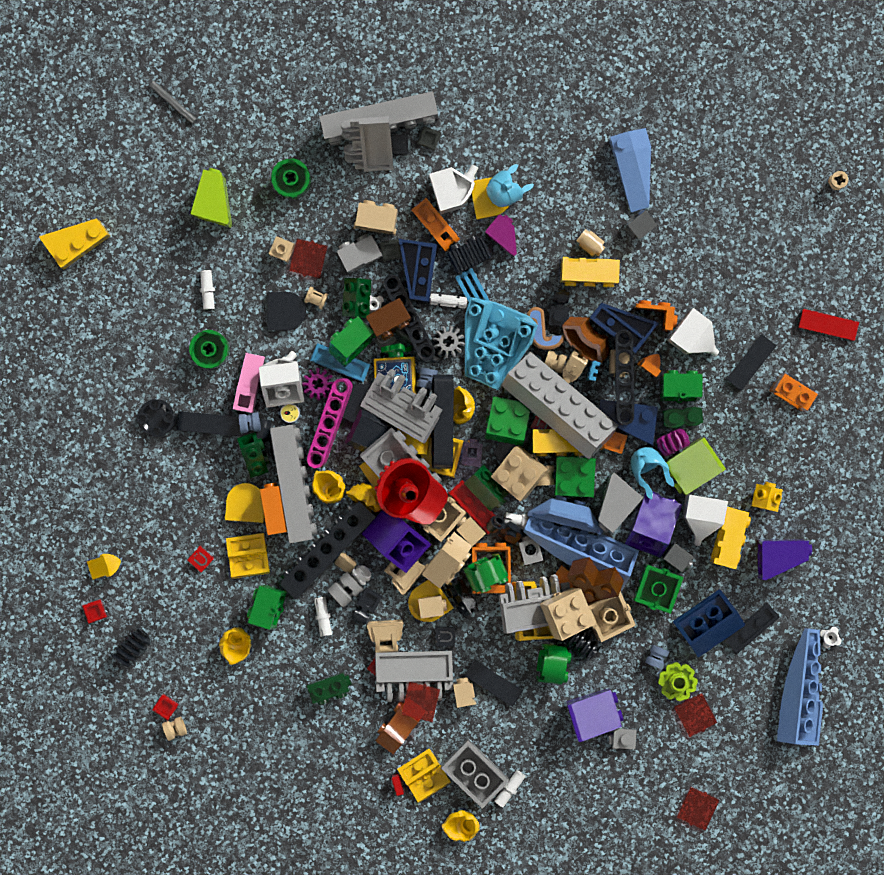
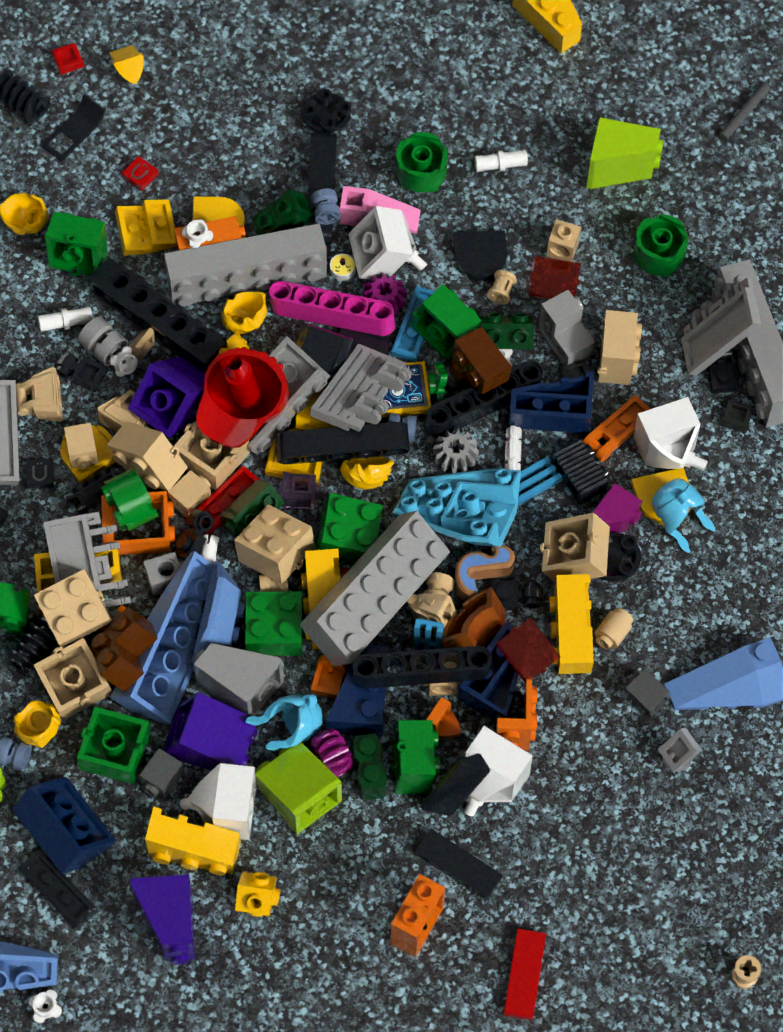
camera: 90 degrees right, 25 degrees down
(156, 605) = (78, 126): none -> black piece
(276, 513) = (197, 226): none -> white plate
(534, 264) = (576, 546): none -> tan brick
(535, 237) = (623, 557): none -> black dish
(612, 304) = (528, 650): none -> clear red piece
(638, 640) = (37, 723): none -> yellow hair
(686, 207) = (679, 750): none -> light grey bracket
(706, 359) = (456, 785): none -> black slope

